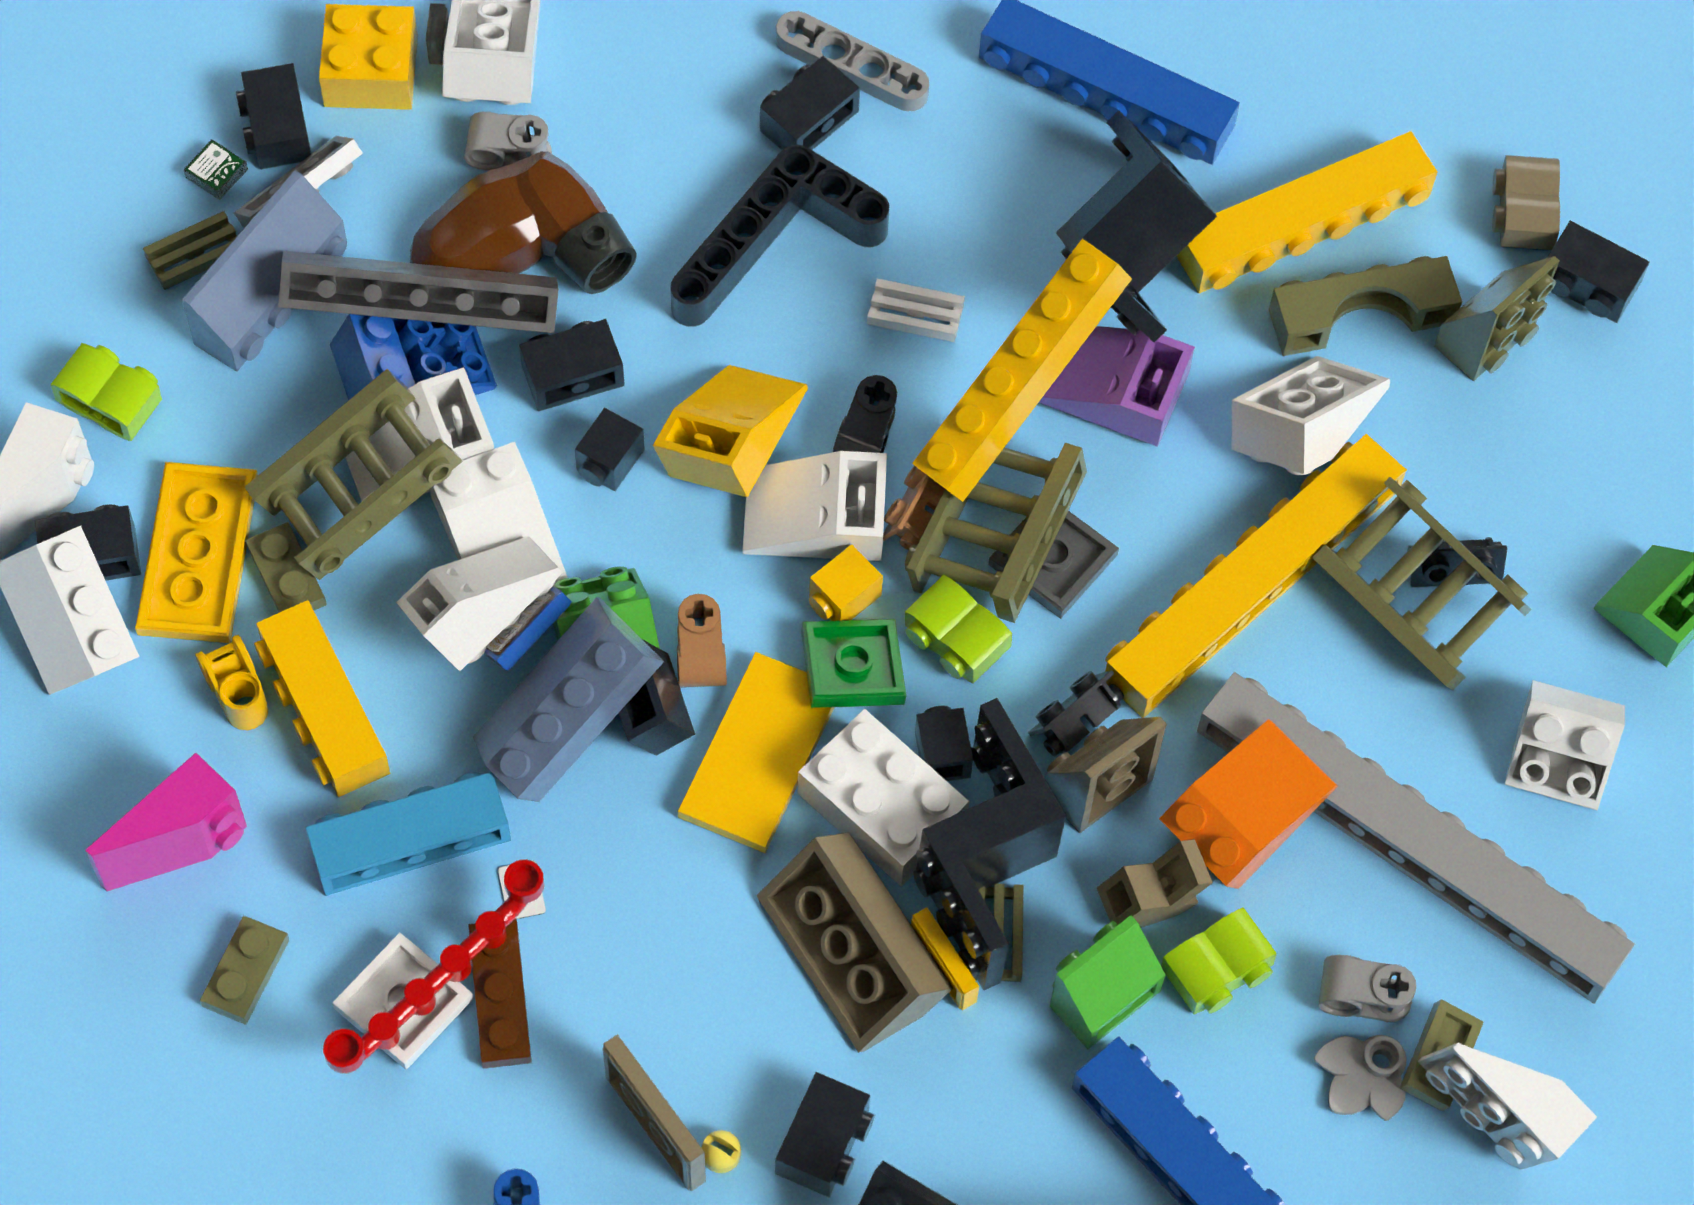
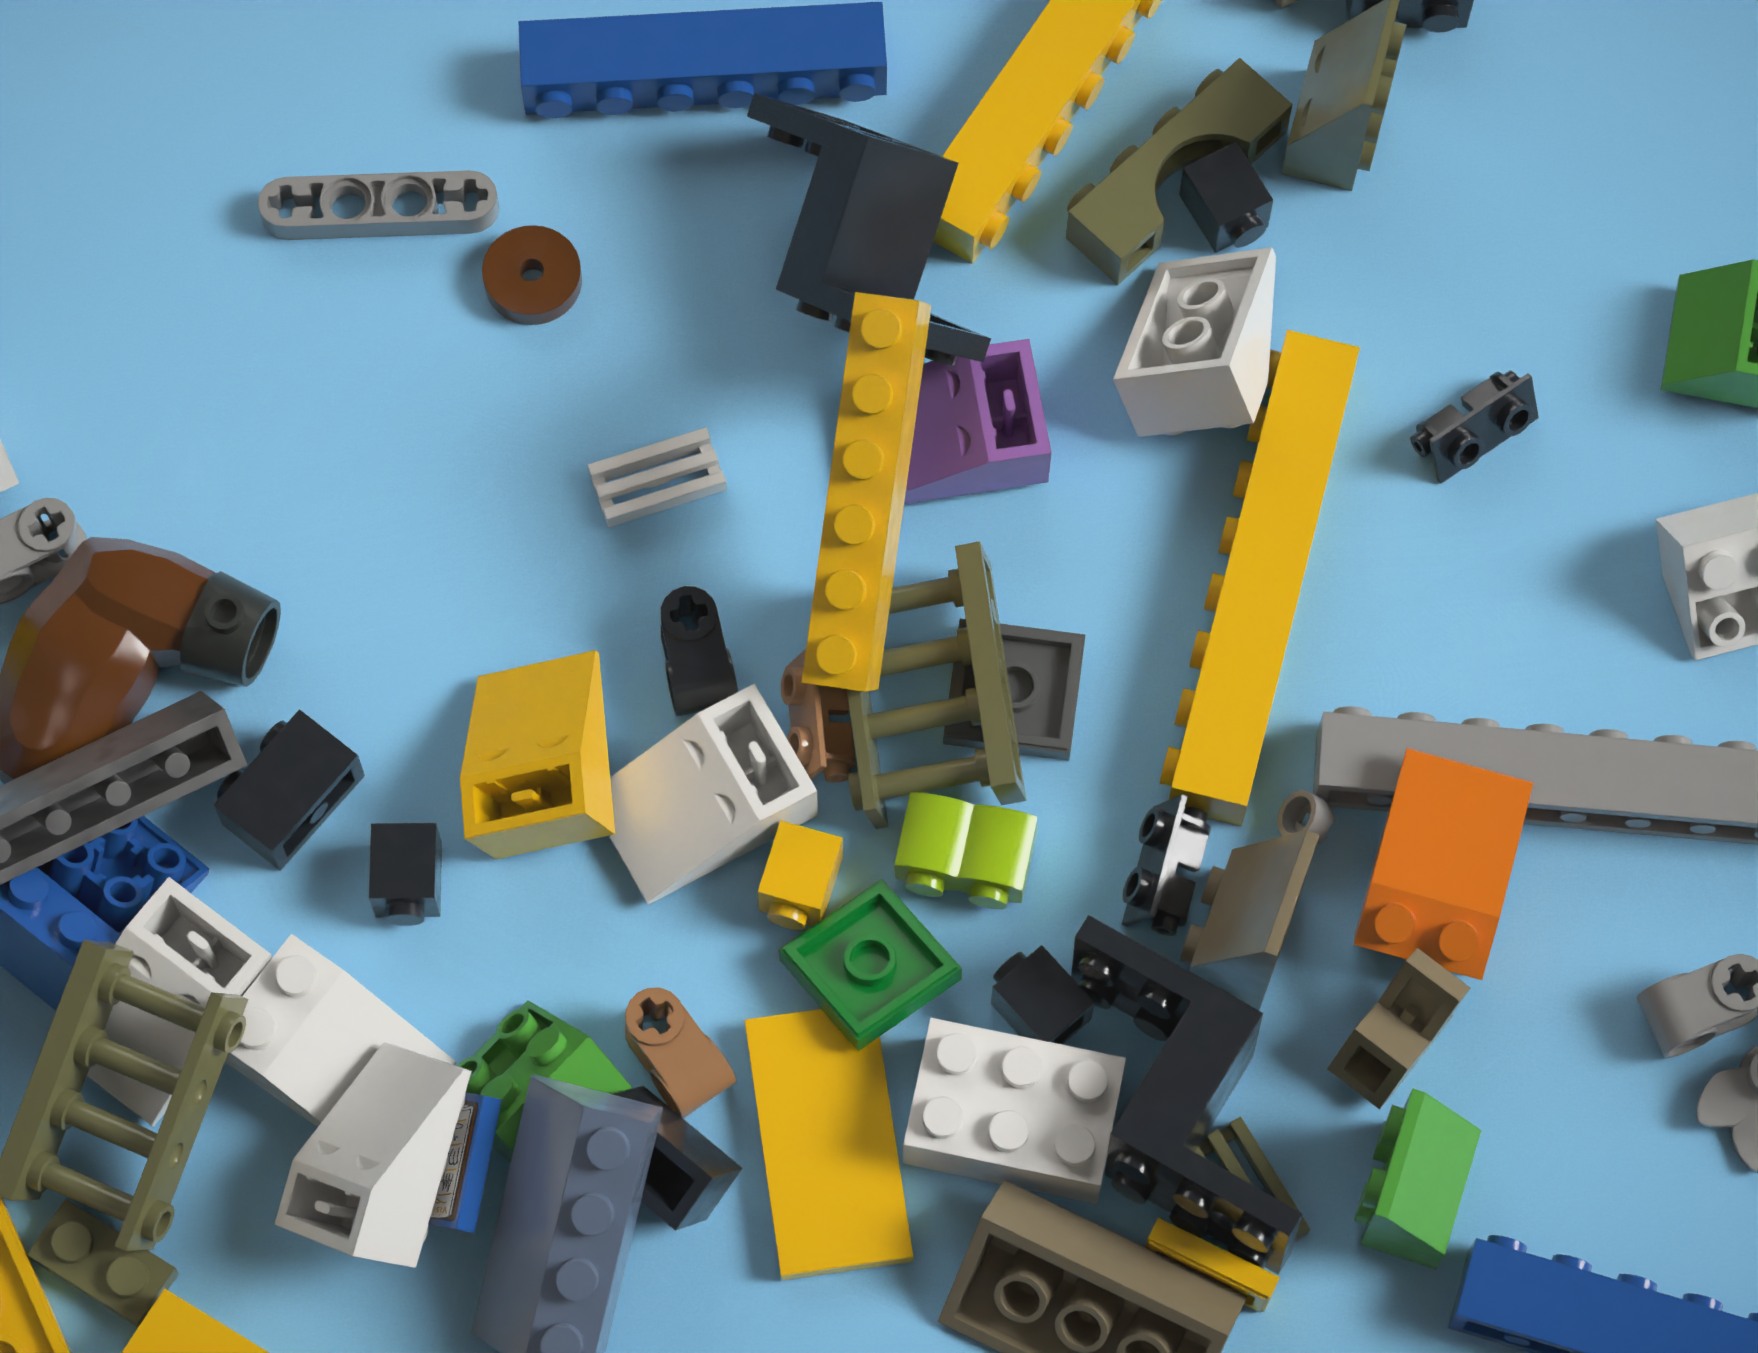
camera: 30 degrees left, 5 degrees up
(767, 222) = (408, 471): black beam -> none
(809, 106) = (367, 296): black brick -> none
(915, 168) = (525, 250): none -> reddish brown piece
(1184, 733) = (1294, 810): none -> light grey hinge
(1219, 961) = (1523, 1073): lime brick -> none
(1384, 338) = (1226, 198): none -> black brick
(1412, 626) = (1480, 535): olive fence -> none

